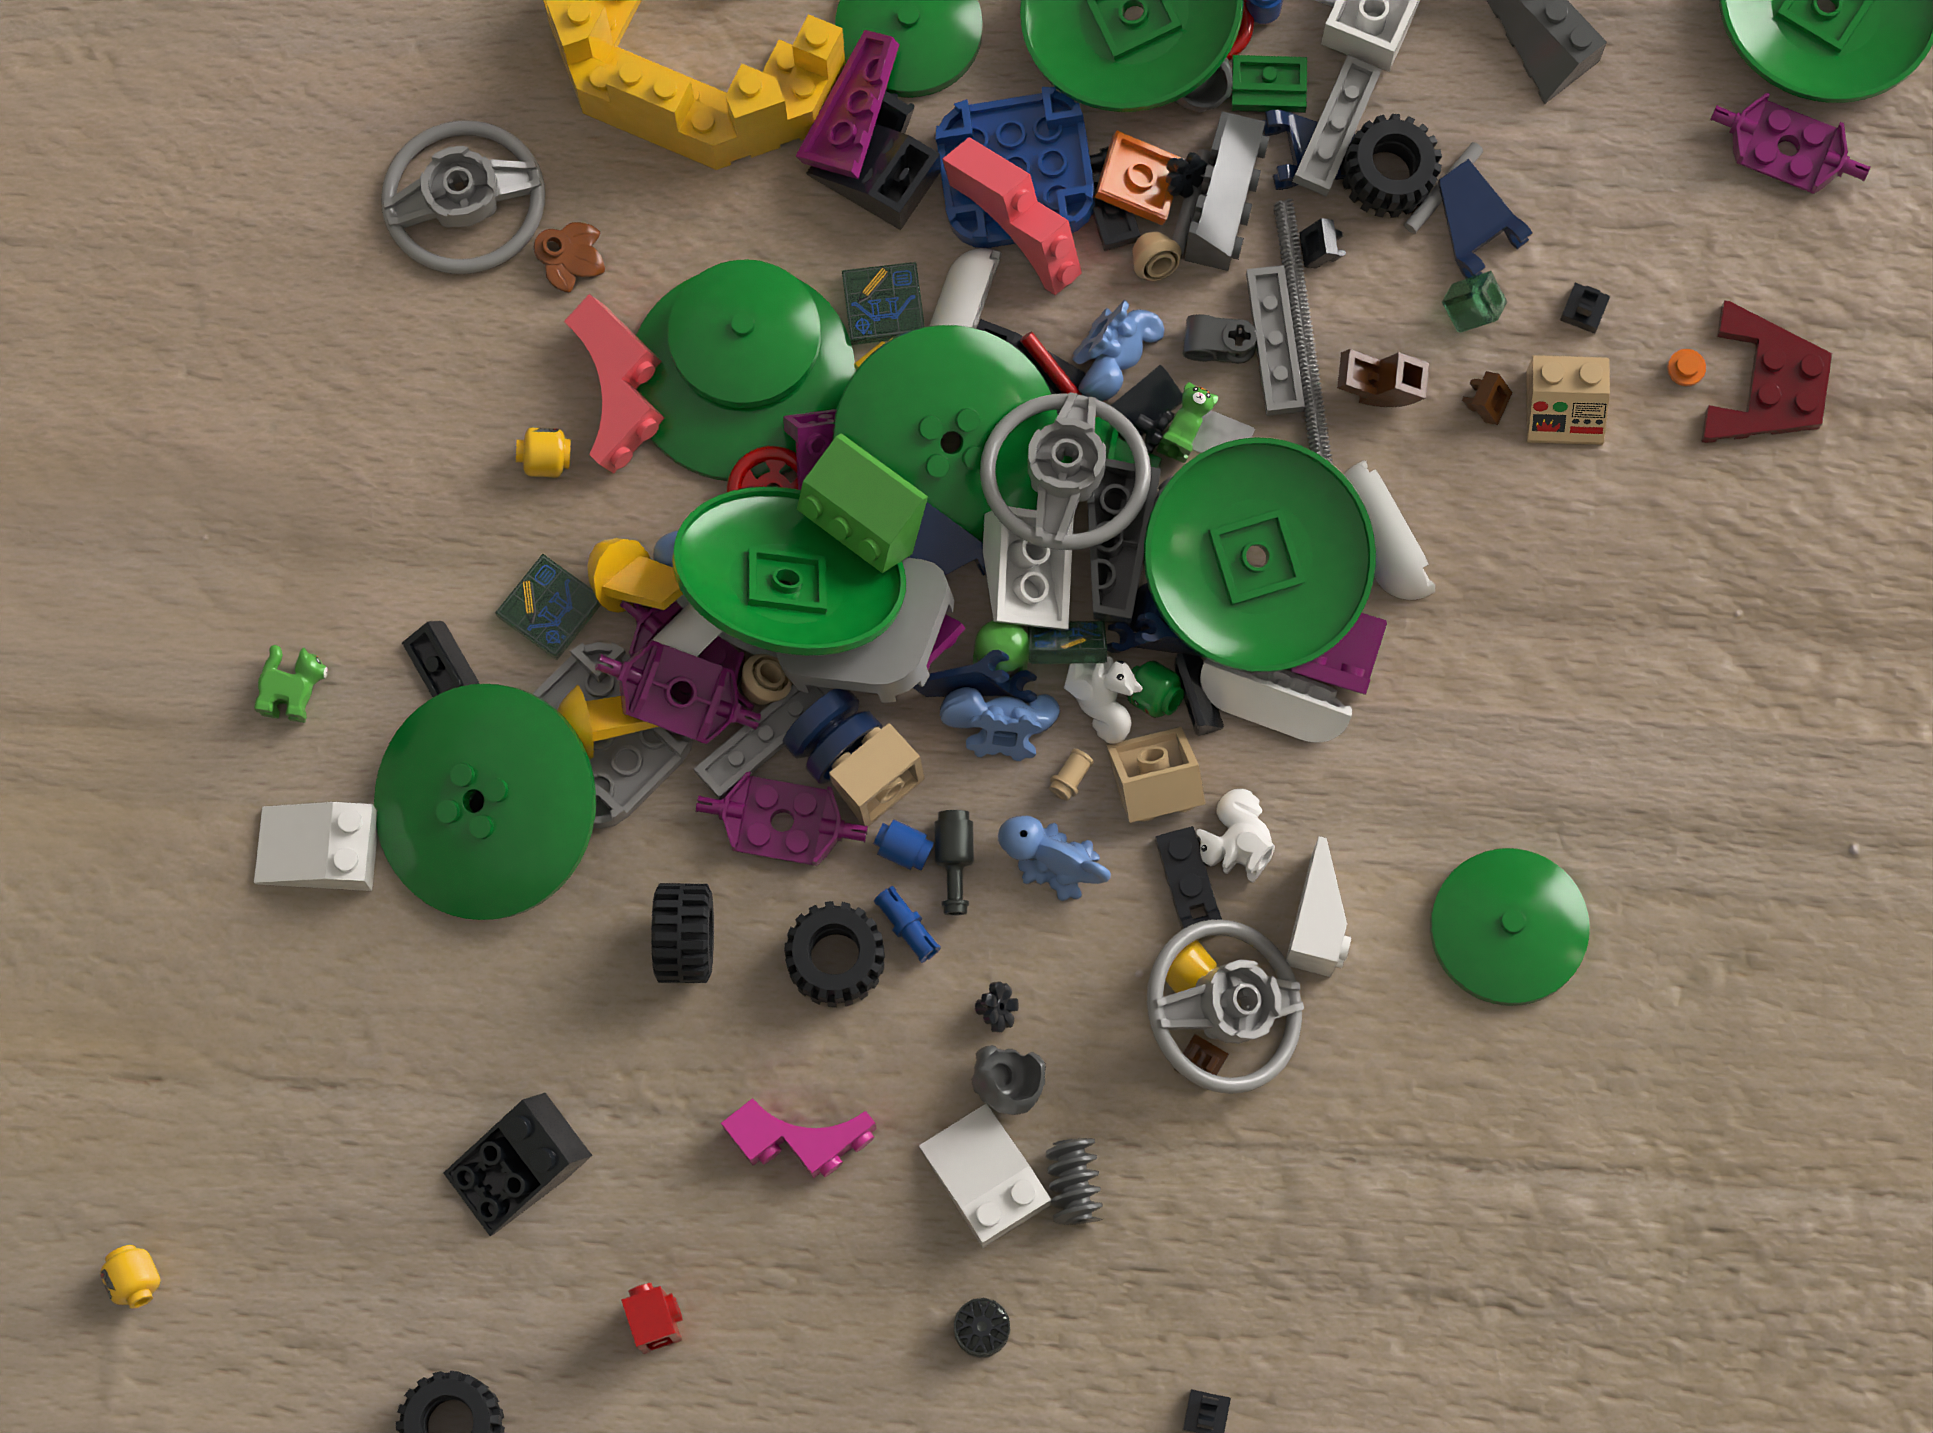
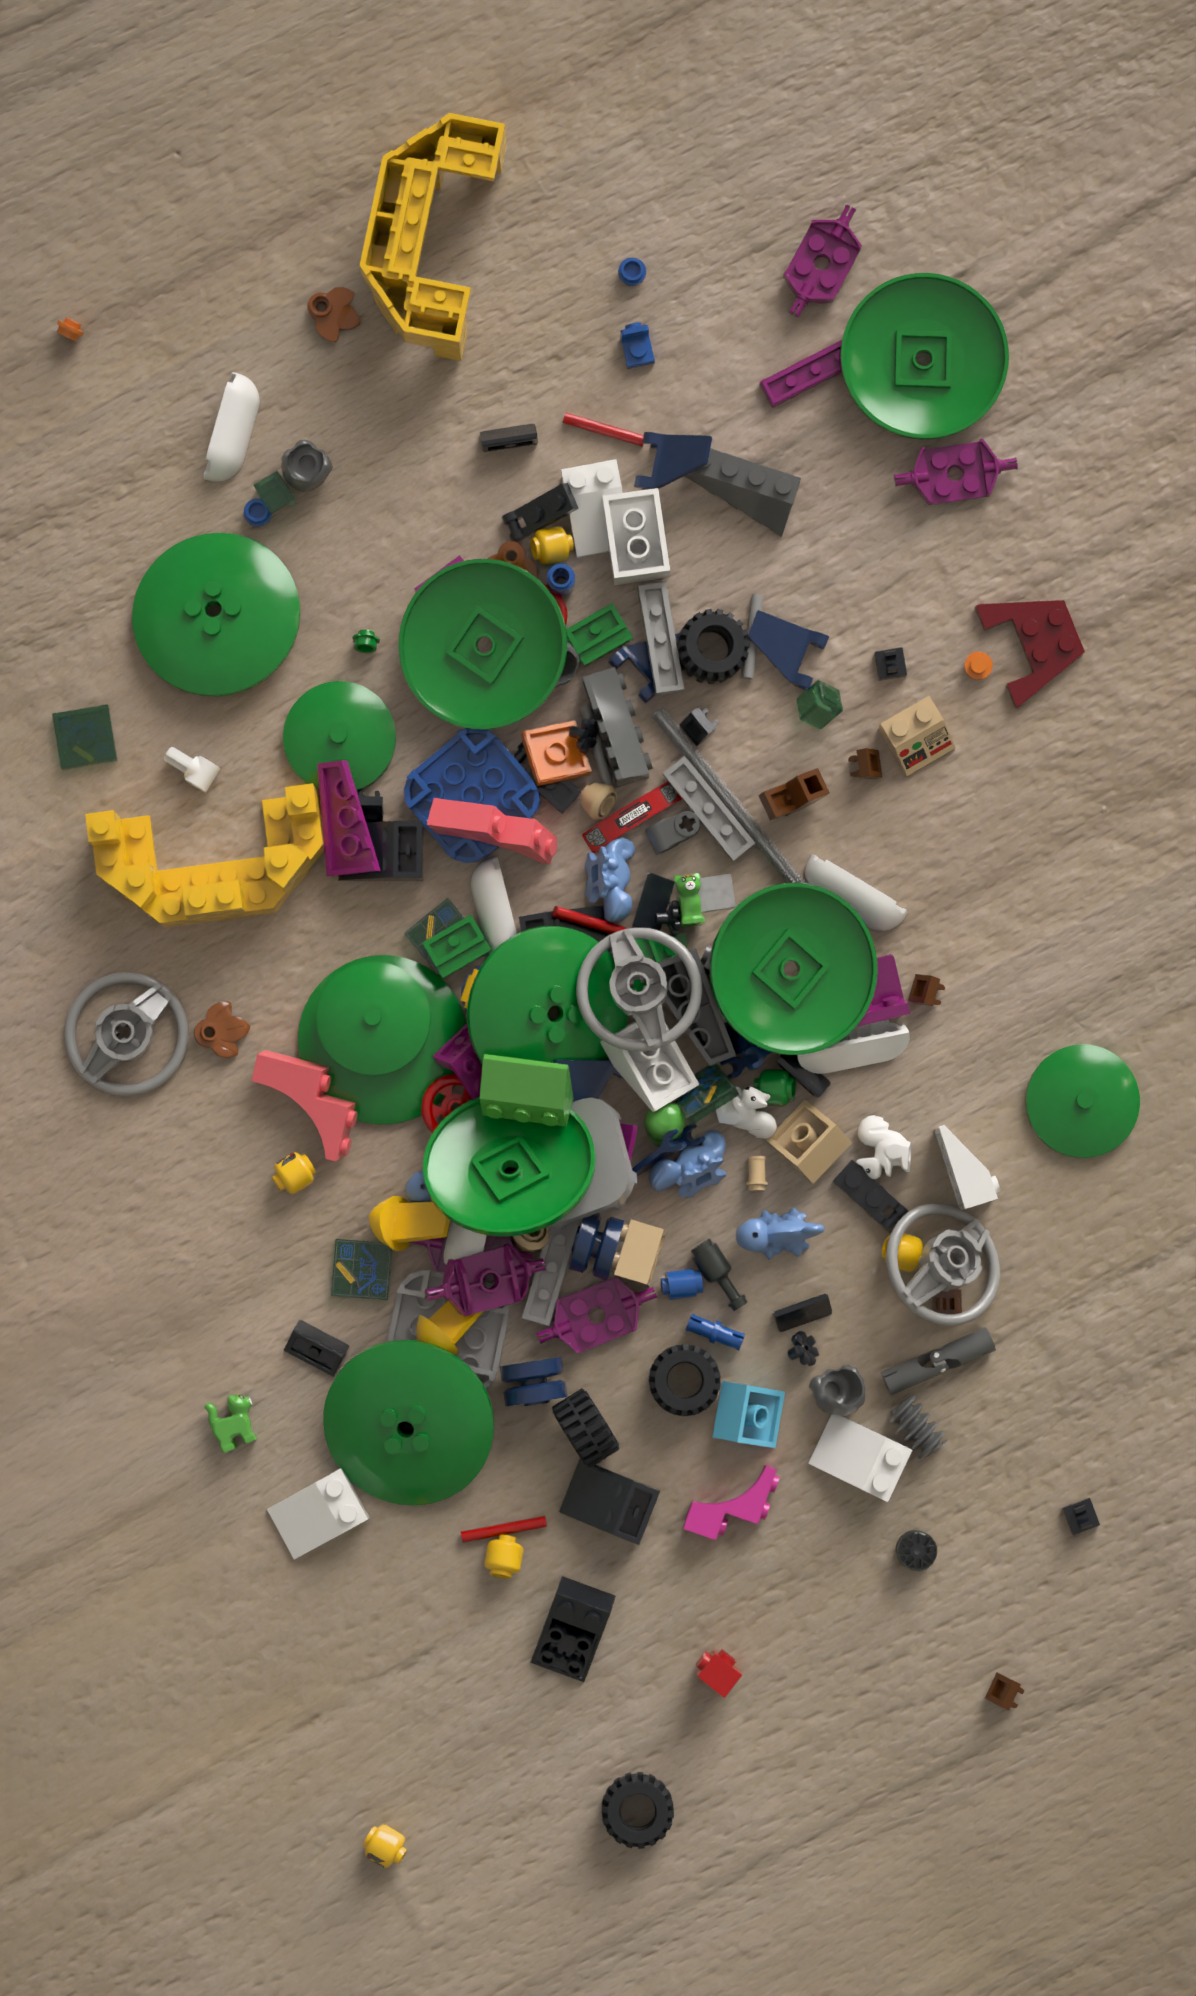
camera: 35 degrees left, 10 degrees up
(492, 1028) = (503, 1557): none -> yellow head
(515, 998) = (503, 1529): none -> red bar
(658, 843) = (533, 1382): none -> dark blue wheel
(658, 1042) = (609, 1502): none -> black slope
(885, 1042) = (748, 1414): none -> medium azure slope
(888, 312) = (457, 946): none -> green plate
(1023, 964) = (802, 1312): none -> black slope
(1178, 1125) = (945, 1358): none -> dark grey piece
(1183, 294) = (630, 816): none -> sticker
(1400, 685) = (925, 990): none -> reddish brown tile

